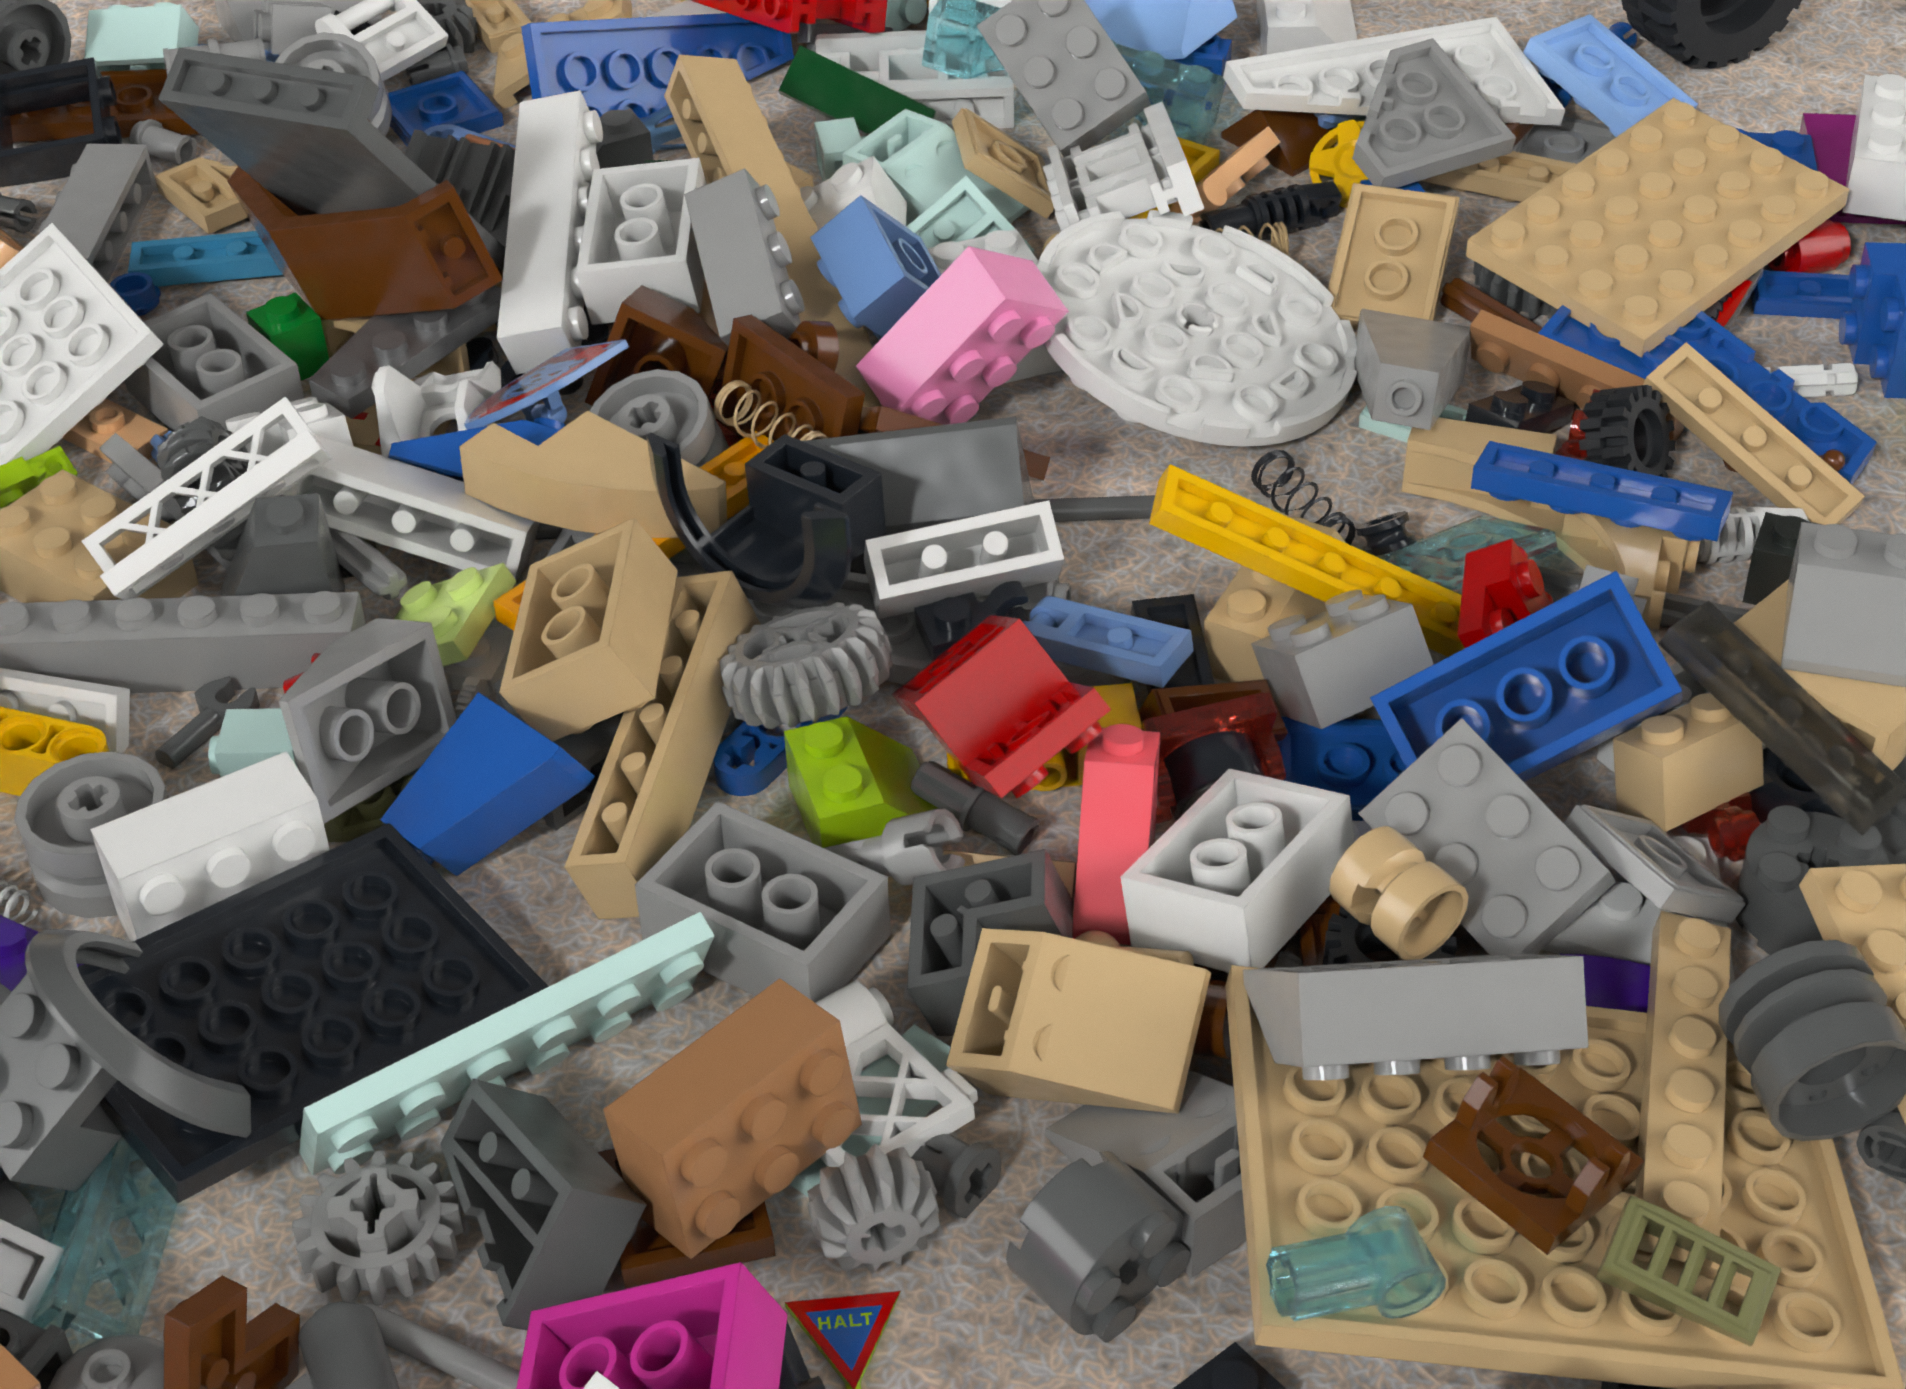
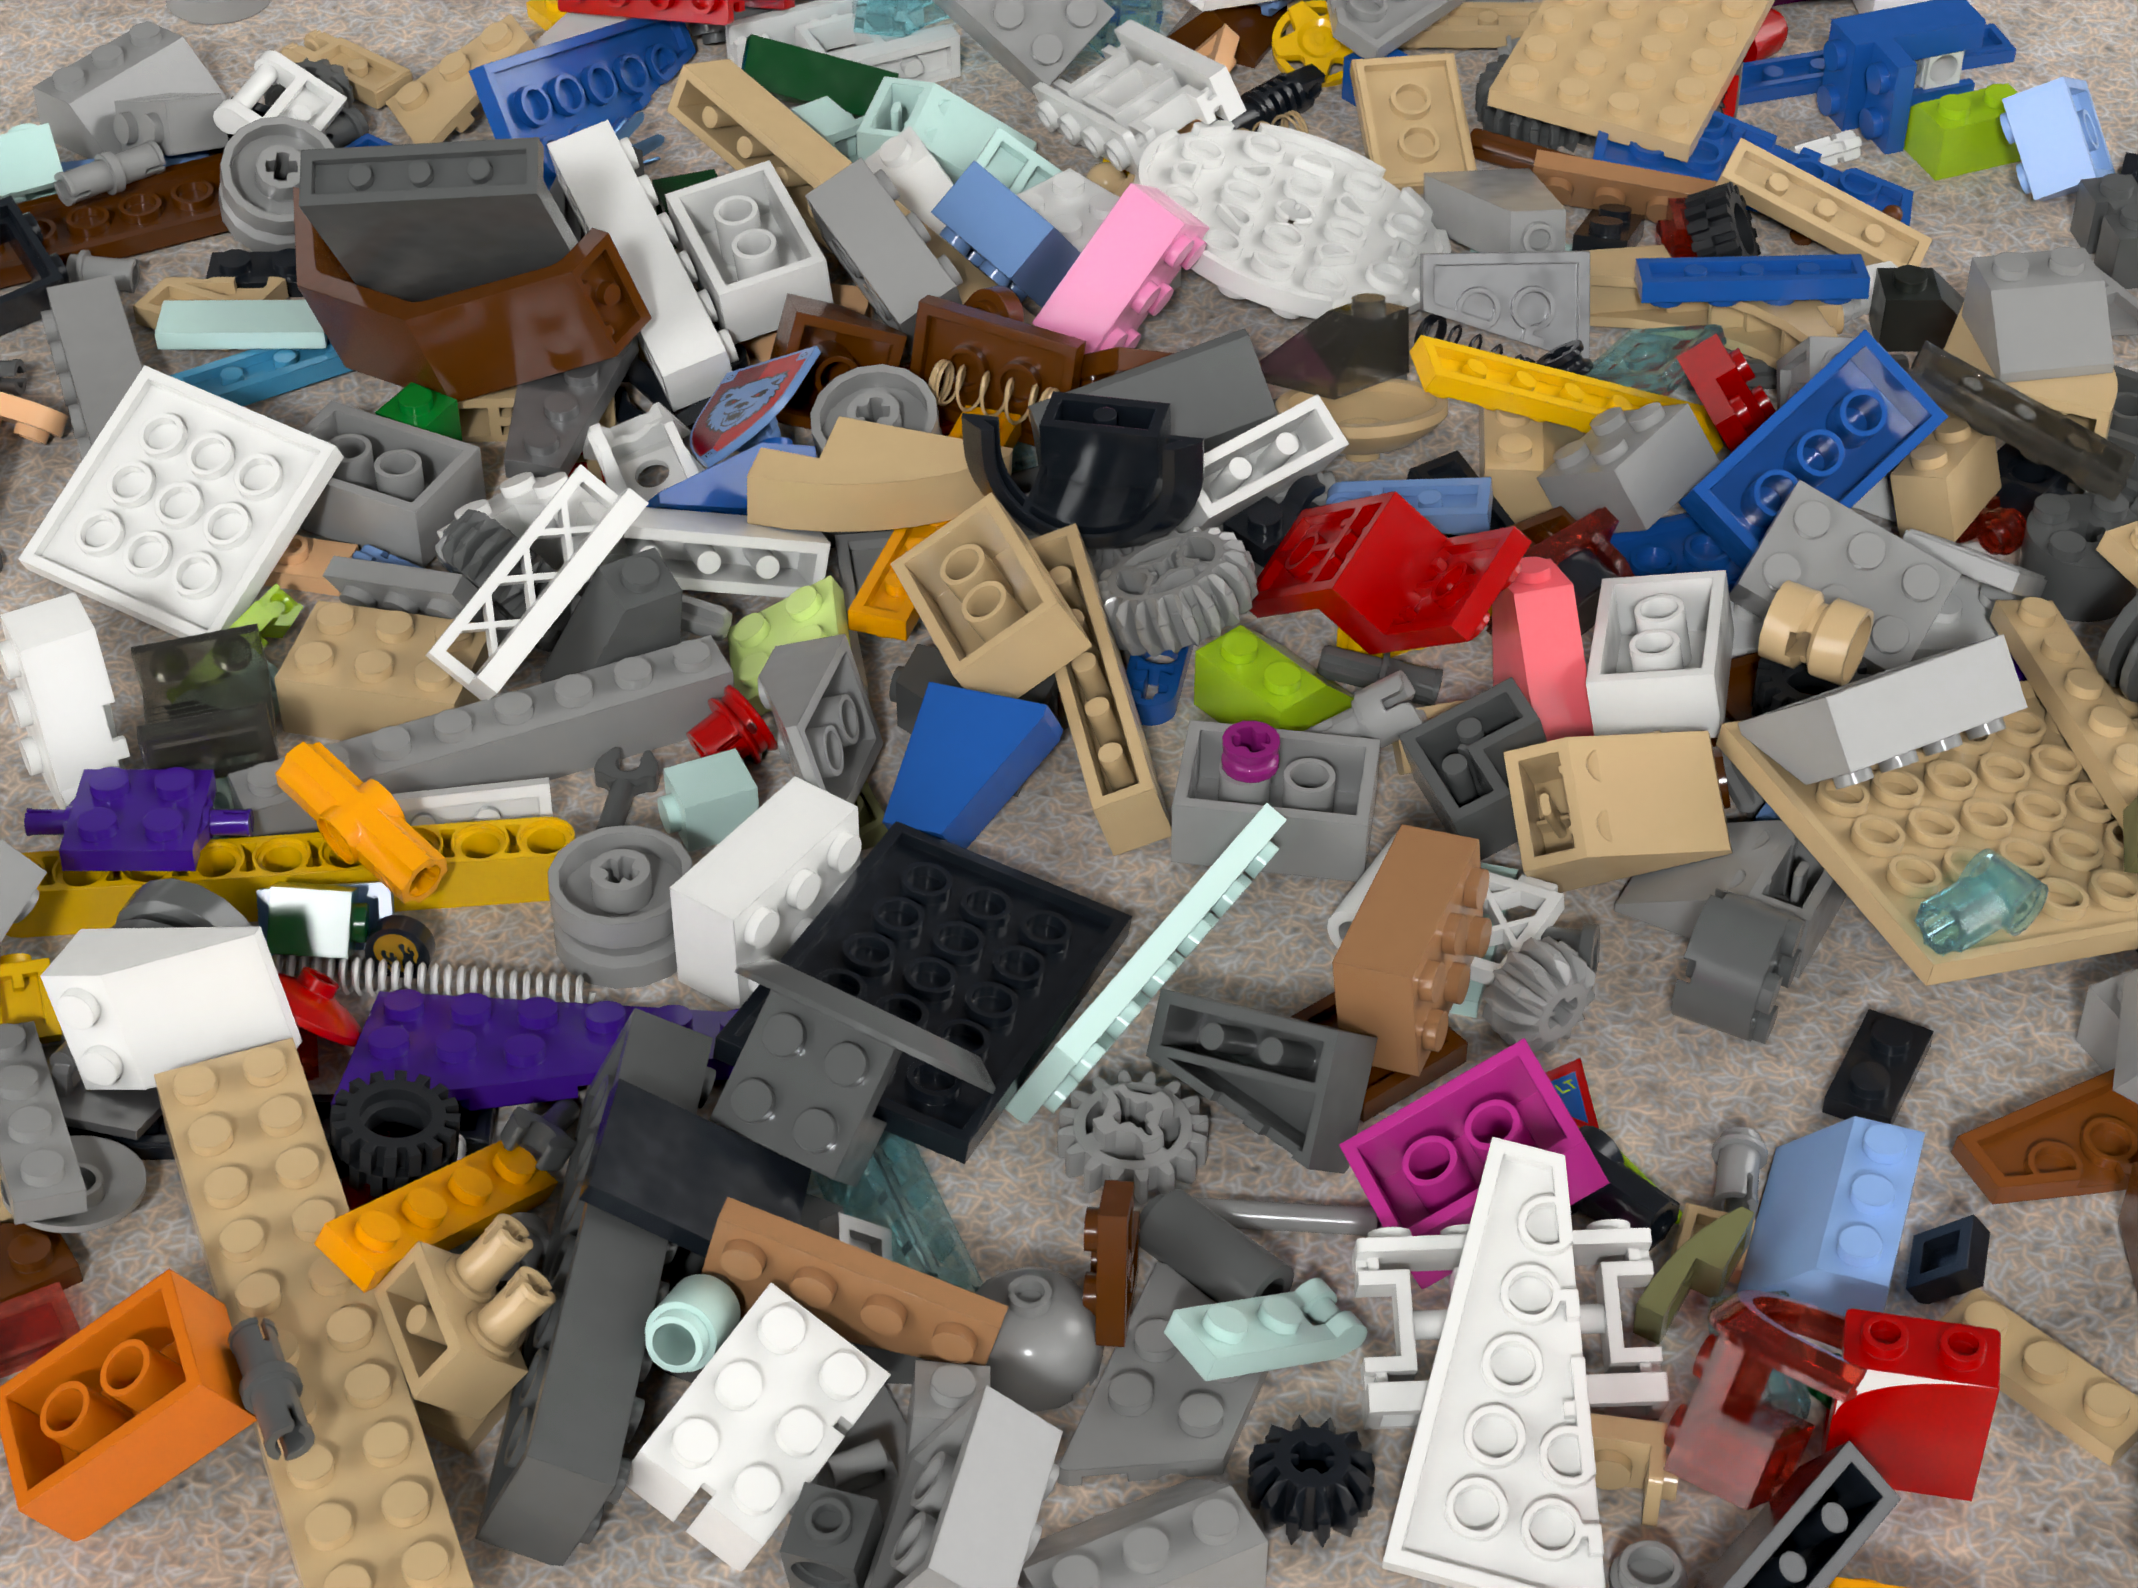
camera: 25 degrees left, 0 degrees up
(198, 208) = (238, 325): none -> light aqua tile
(739, 868) = (1254, 765): none -> magenta bush
(1002, 161) = (1000, 109): tan tile -> none
(1115, 538) = (1379, 416): none -> tan dish
(1128, 467) = (1344, 349): none -> clear smoke slope
(1363, 449) = (1518, 295): none -> flat silver wing
(1538, 1219) = (2059, 830): reddish brown piece -> none

